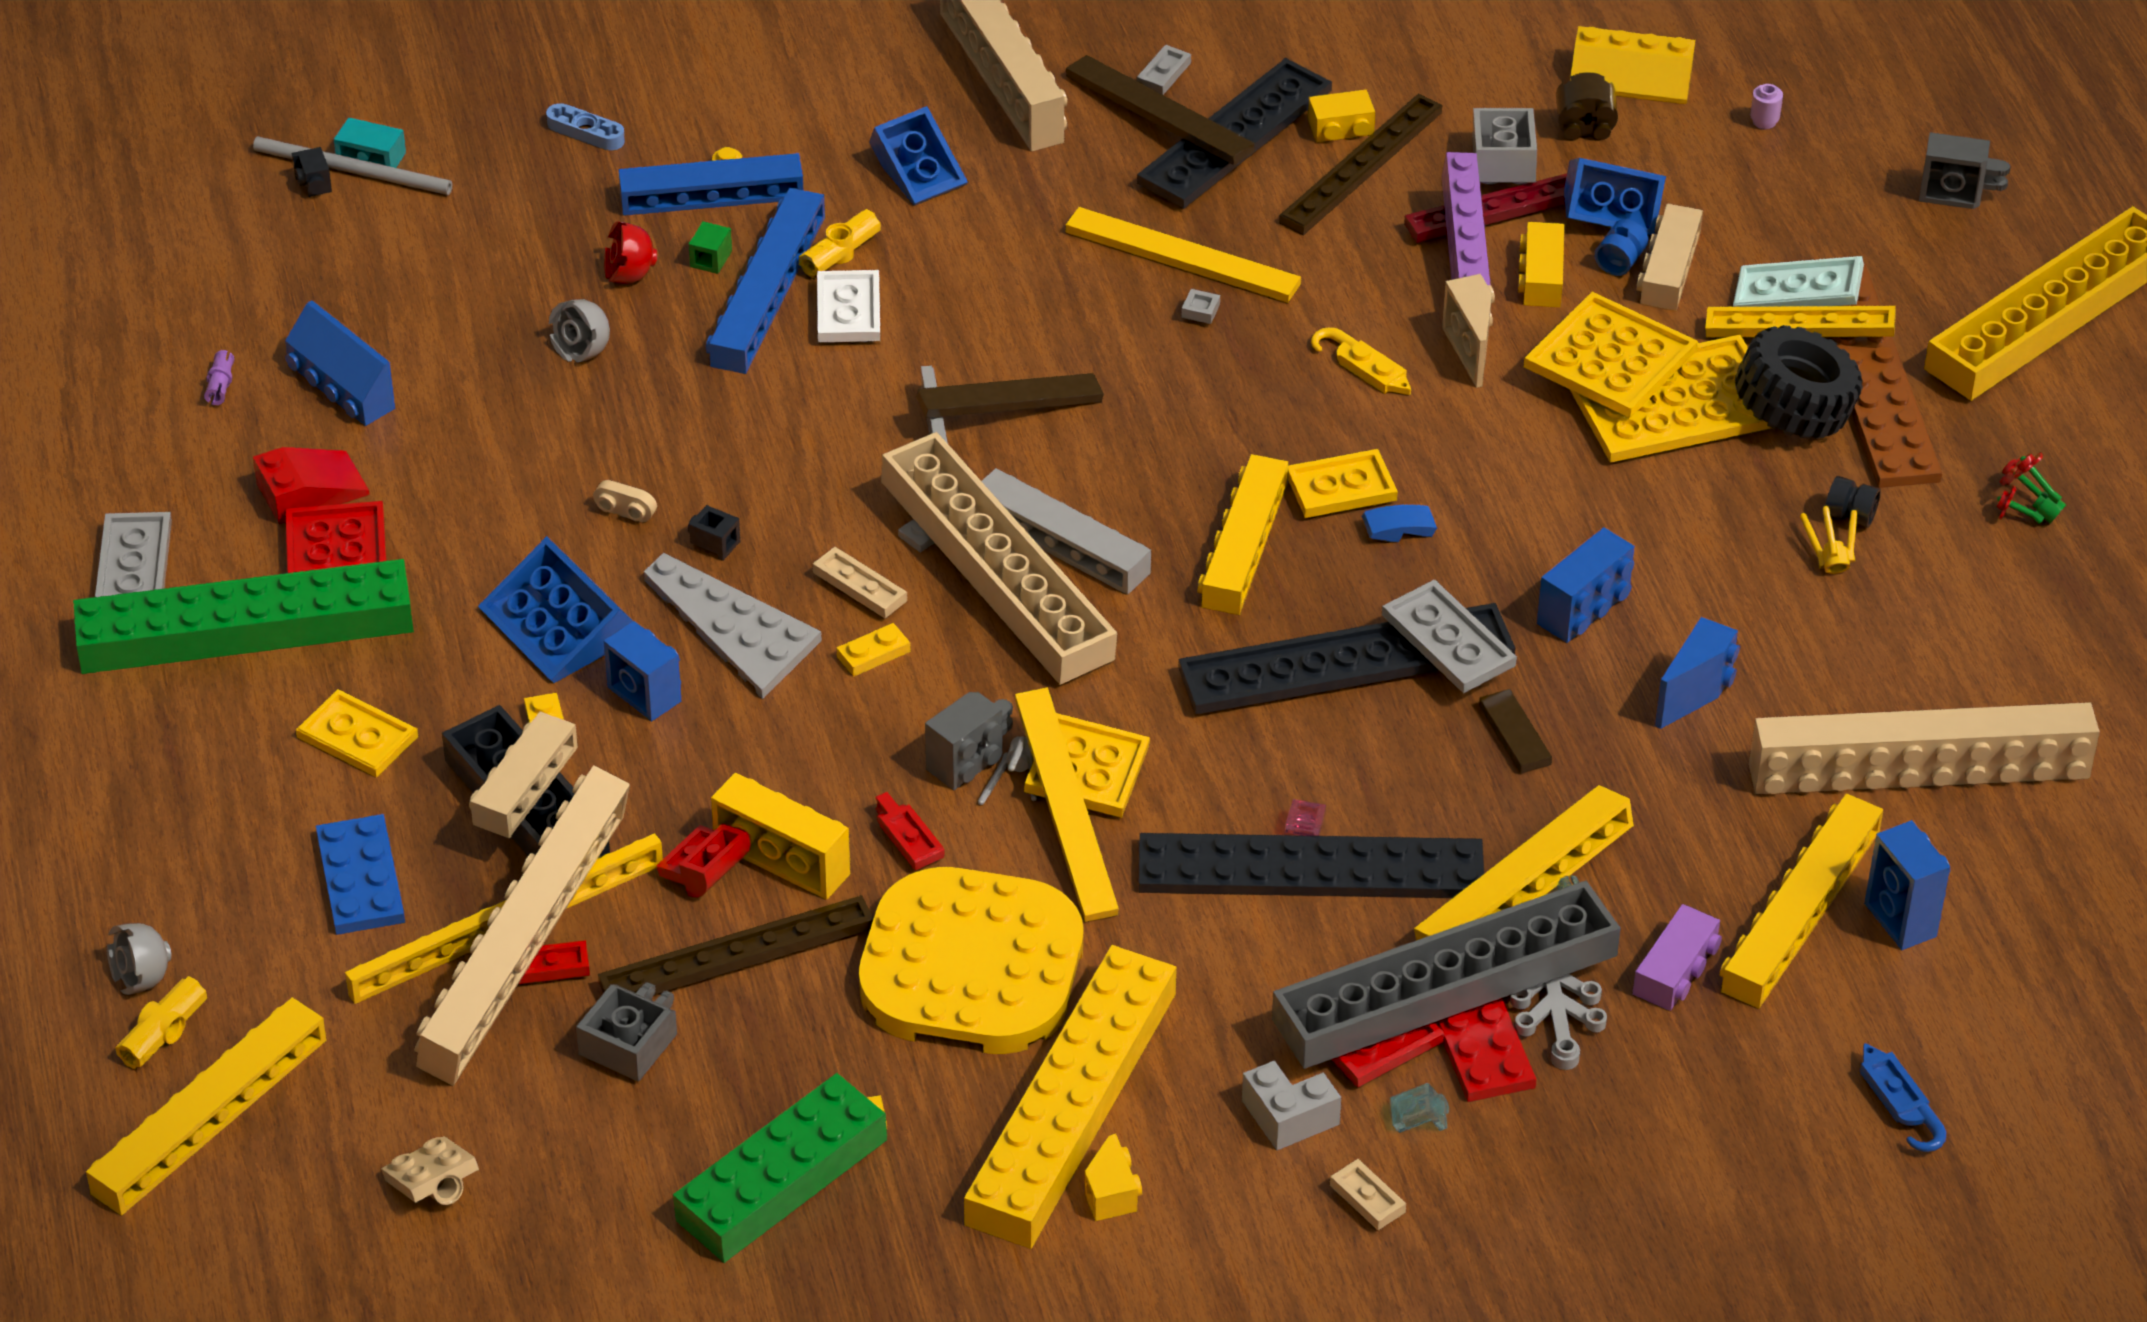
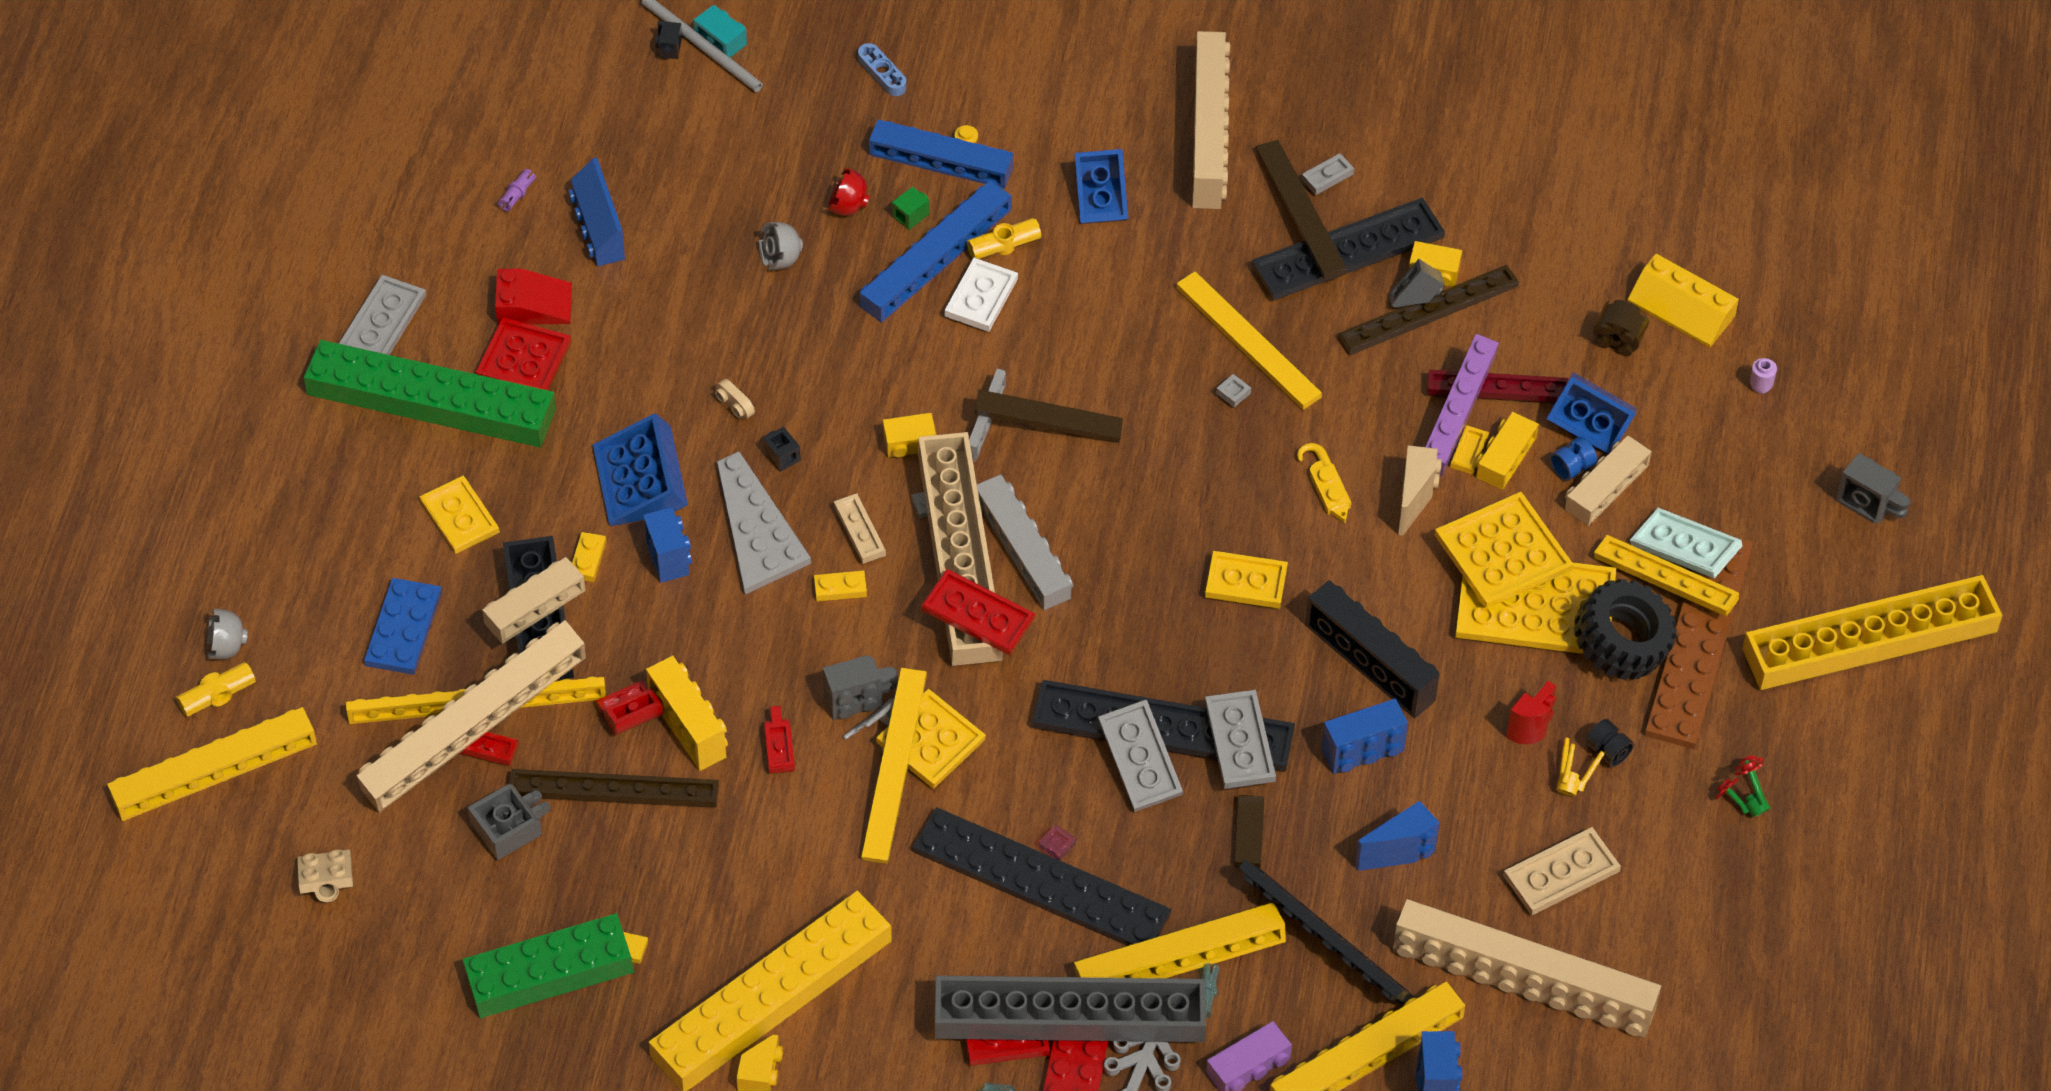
camera: 25 degrees right, 10 degrees up
(854, 469) = (903, 432): none -> yellow brick
(971, 958) = (765, 858): yellow plate -> none
(1067, 607) = (978, 611): none -> red tile
(1243, 534) = (1150, 595): yellow brick -> none
(1287, 1110) = (910, 1066): light grey brick -> none
(1338, 139) = (1417, 285): none -> dark grey slope
(1345, 693) = (1140, 755): none -> light grey plate
(1391, 522) = (1269, 626): blue slope -> none
(1503, 279) = (1468, 449): none -> yellow tile
(1505, 145) = (1535, 338): light grey brick -> none
(1530, 495) = (1372, 648): none -> black brick
(1691, 796) = (1331, 938): none -> black plate
(1755, 502) = (1531, 716): none -> red brick
(1887, 645) = (1561, 871): none -> tan plate

